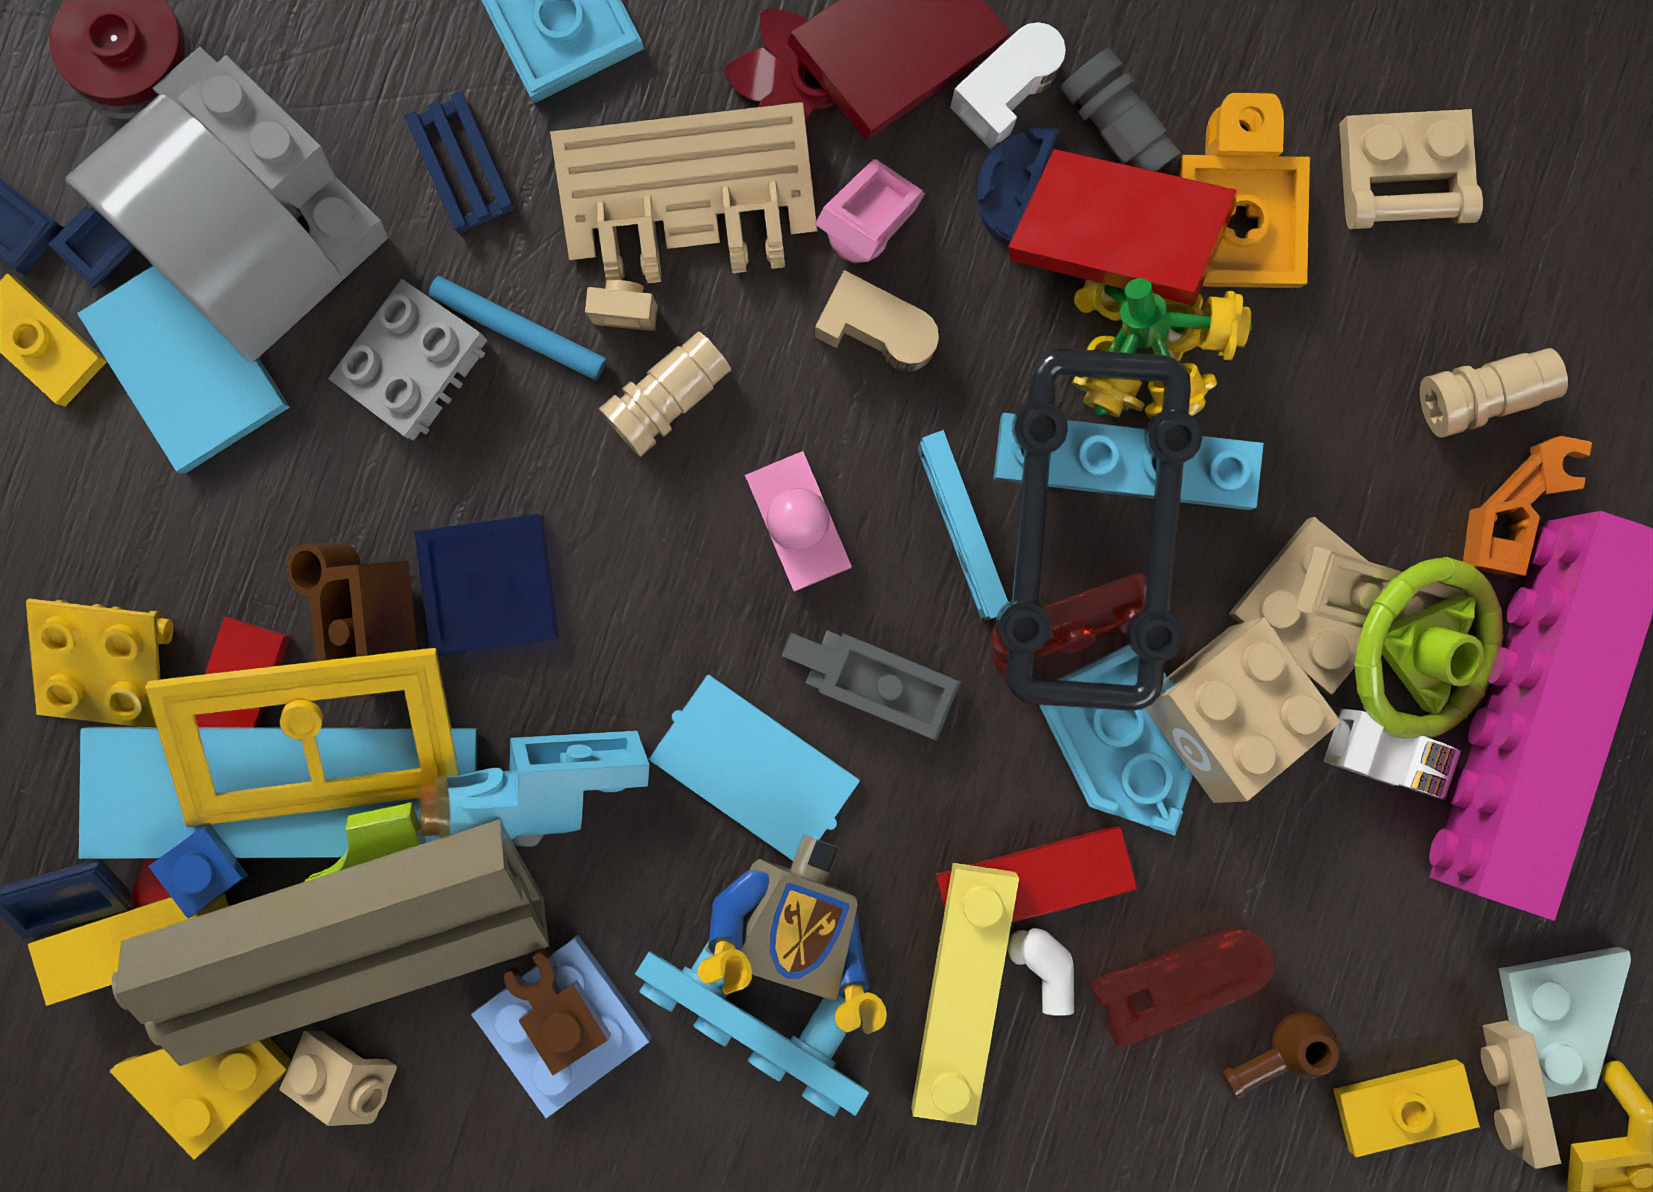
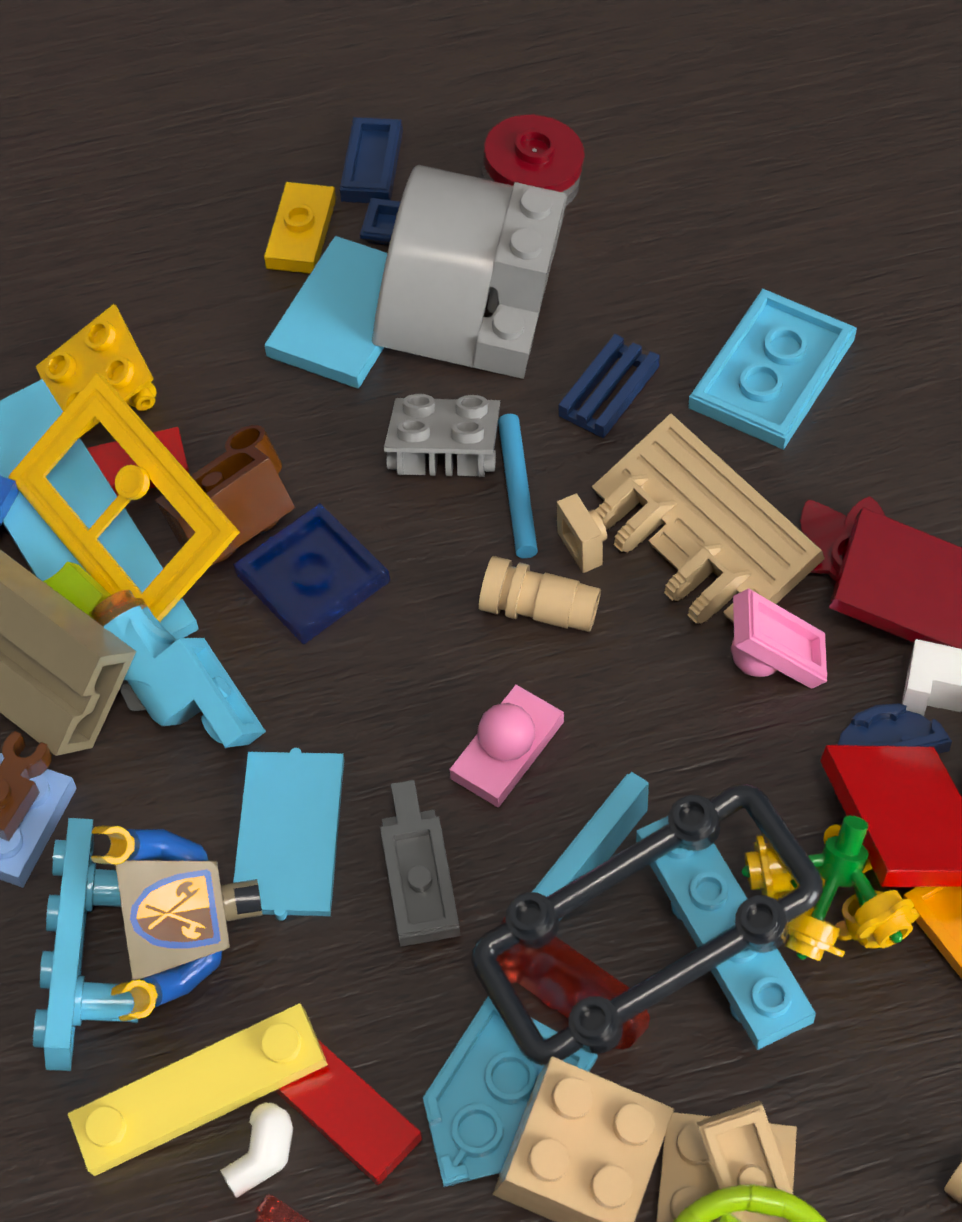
camera: 60 degrees right, 30 degrees down
(879, 320) = (706, 717): tan leg -> none

